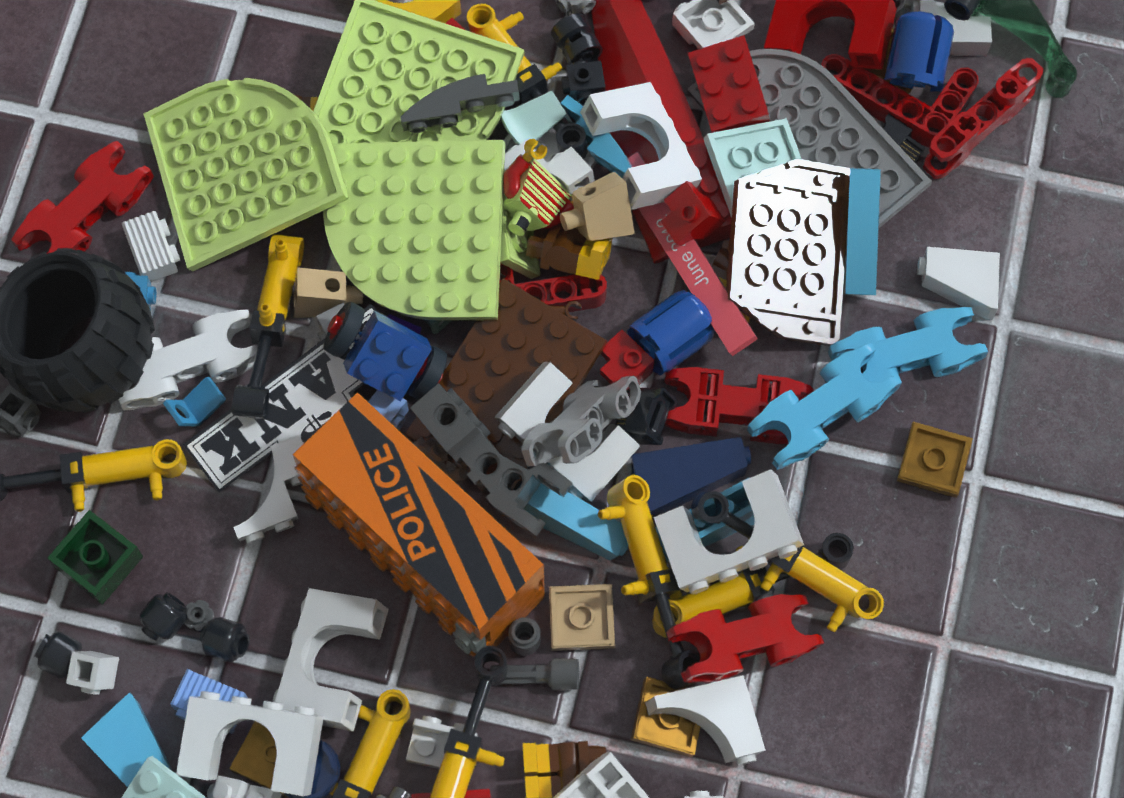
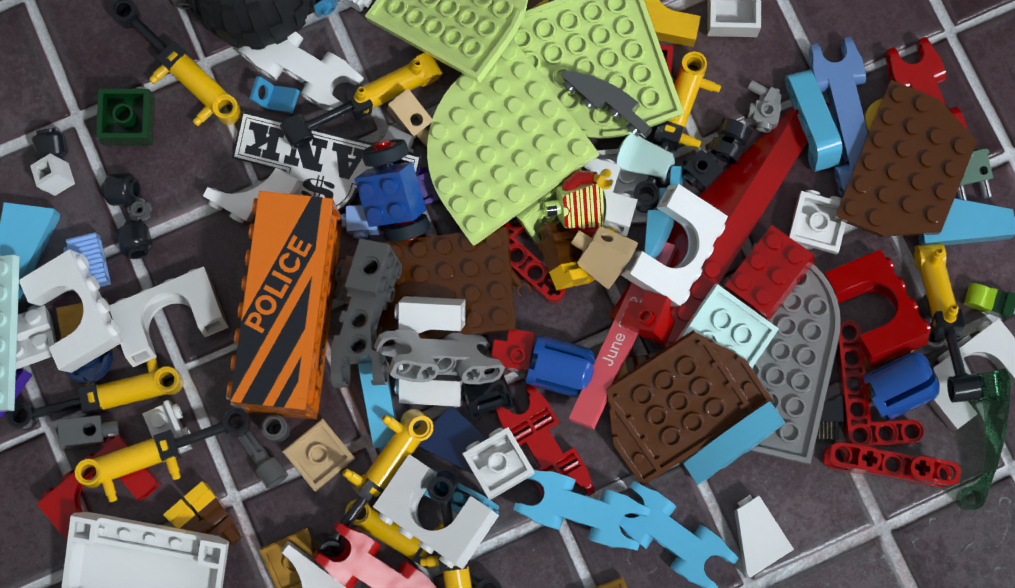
camera: 55 degrees right, 10 degrees up
(723, 444) = (498, 462): none -> white plate

